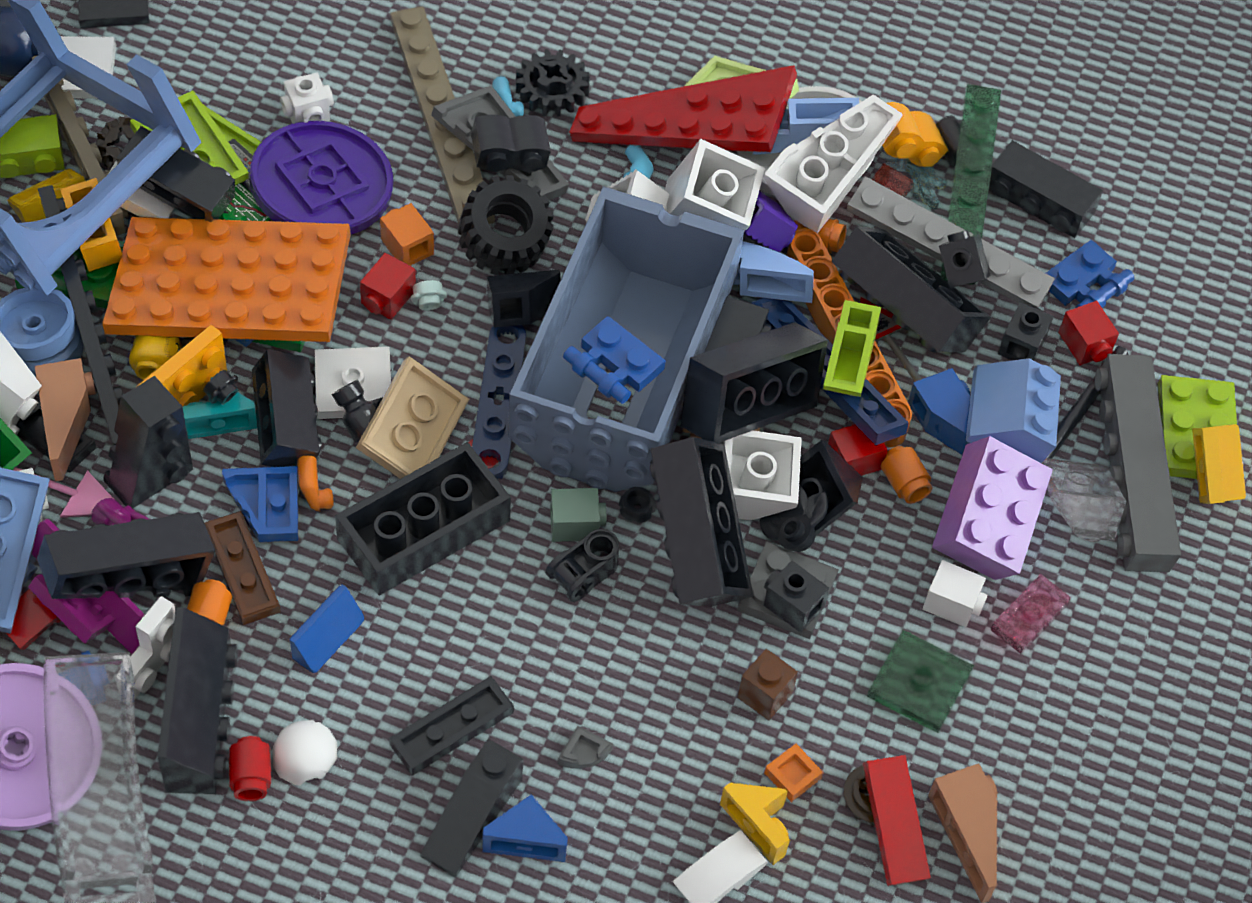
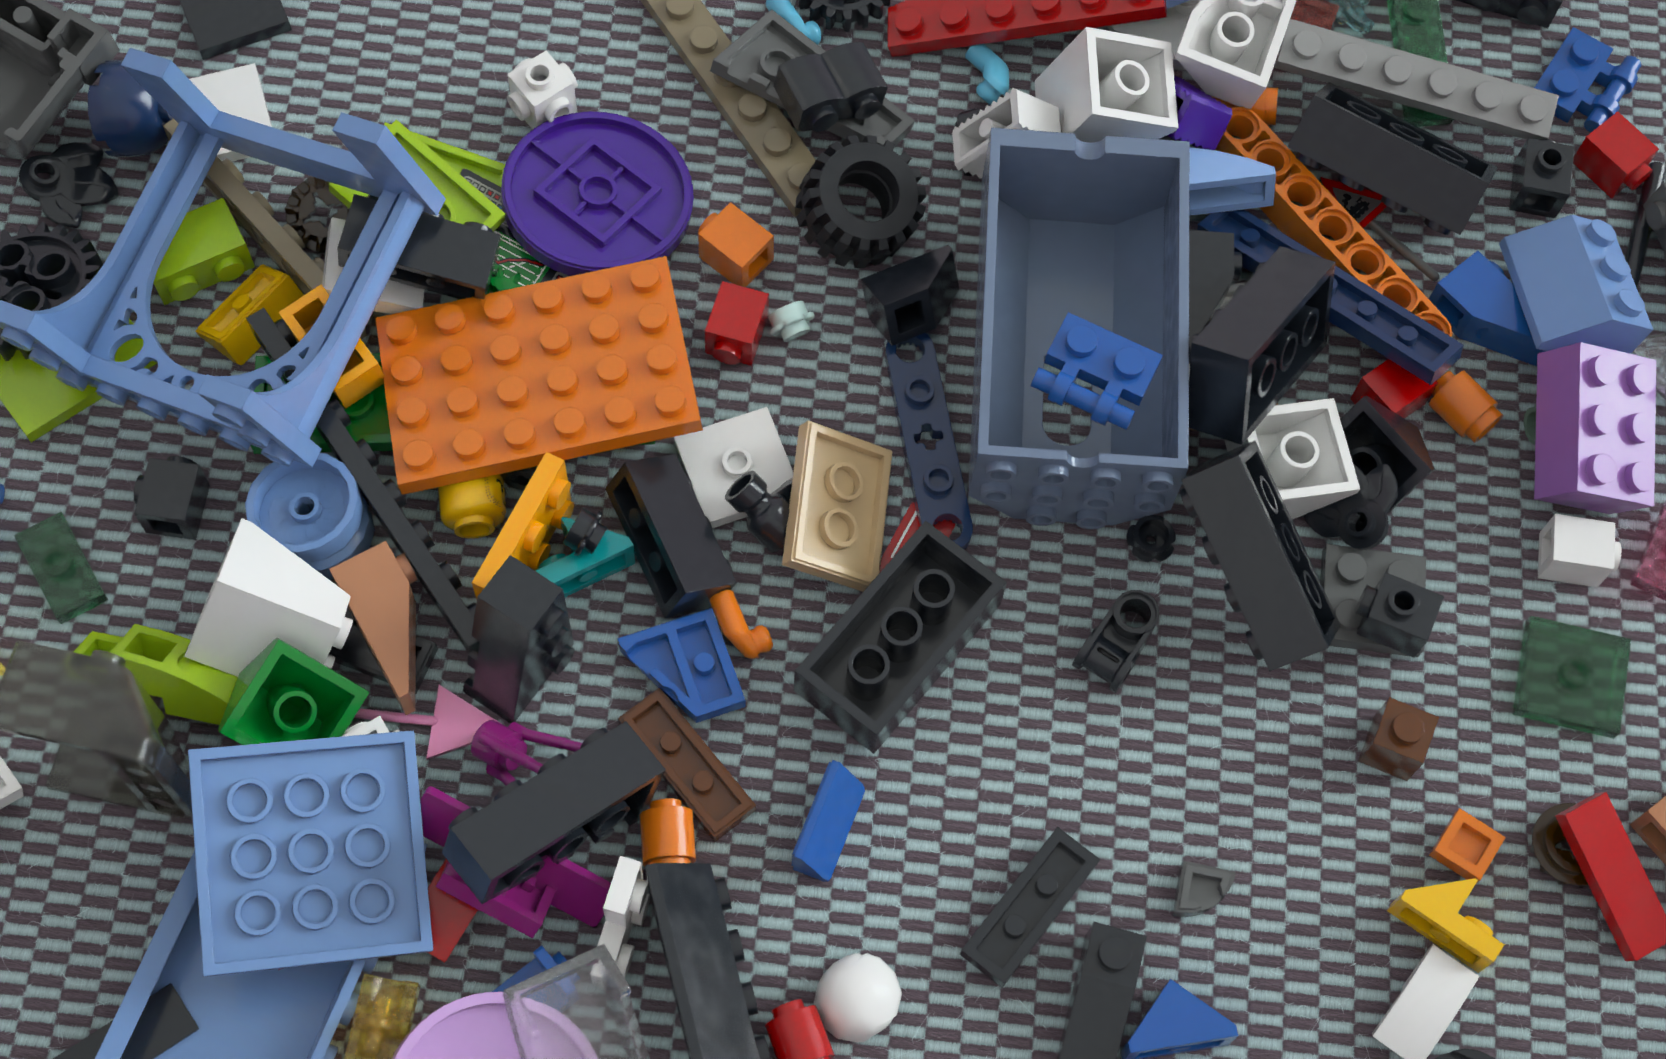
camera: 15 degrees left, 10 degrees up
(575, 513) = (1083, 574): sand green brick -> none
(852, 348) = (1362, 262): lime slope -> none
(964, 259) = (1450, 101): black brick -> none

